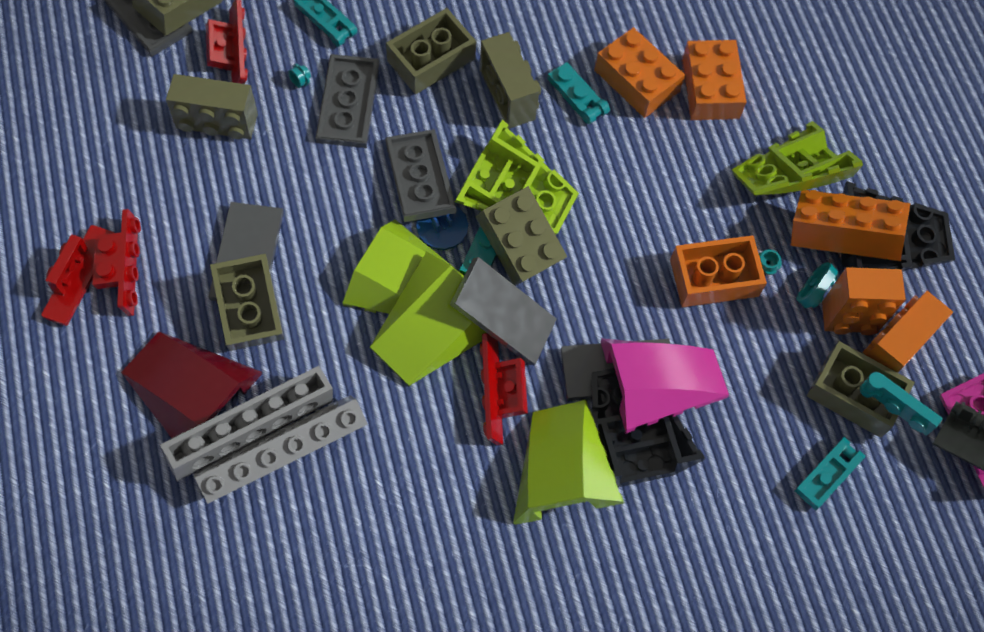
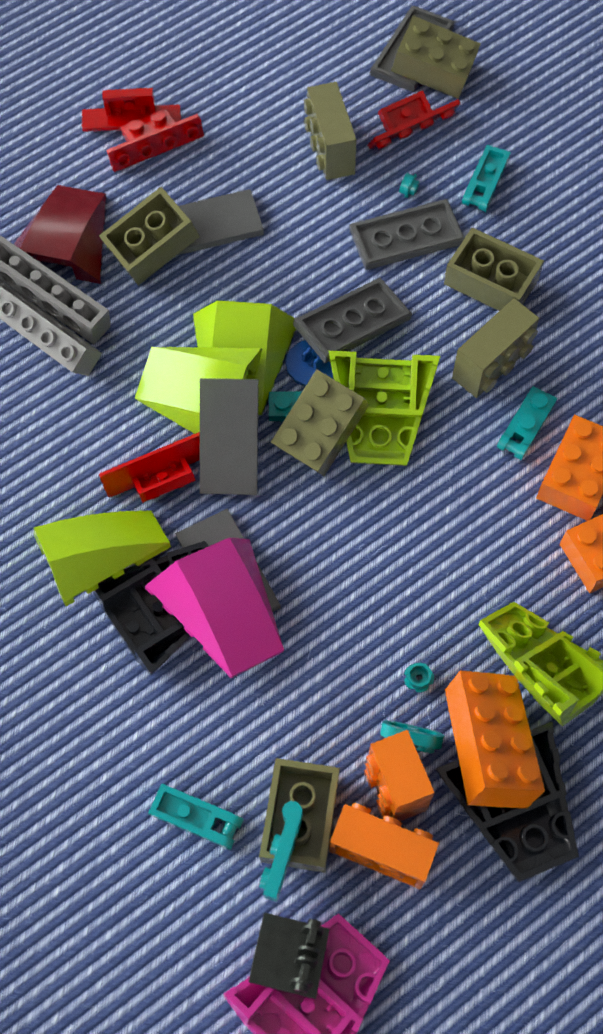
camera: 75 degrees right, 0 degrees up
(717, 271) = (375, 622): orange brick -> none

